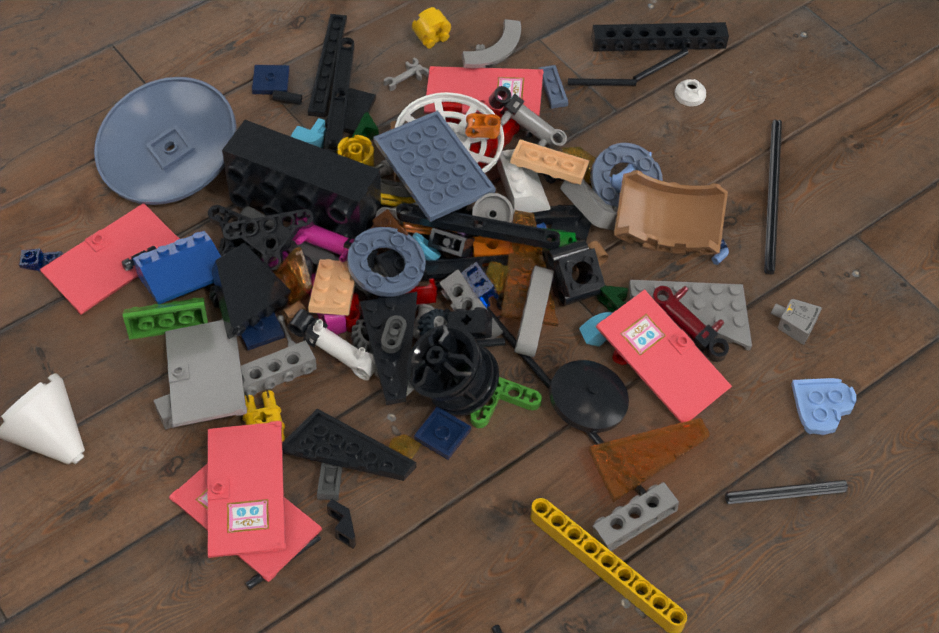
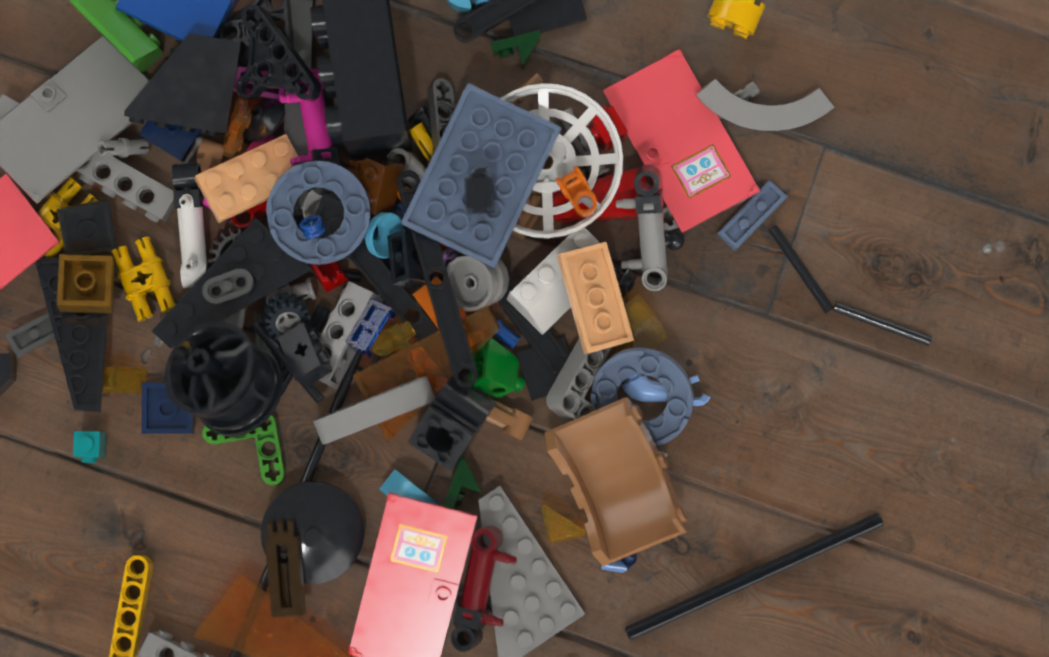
camera: 60 degrees right, 30 degrees up
(249, 353) = (122, 147): none -> light grey pin
(285, 406) = (87, 228): none -> black tile
(324, 418) = (85, 284): none -> pearl gold brick
(348, 404) = (131, 275): none -> yellow pin
(358, 149) = (455, 61): yellow brick -> none
(392, 268) = (312, 226): none -> blue bush
(412, 69) = (663, 36): light grey bar -> none
(433, 491) = (89, 445): none -> teal brick
(448, 158) = (479, 194): none -> black brick
(612, 419) = (285, 578): none -> dark brown hinge
(659, 36) = (987, 363): black brick -> none
(676, 266) = (560, 528): none -> clear yellow slope
(689, 96) = (847, 393): white piece -> none

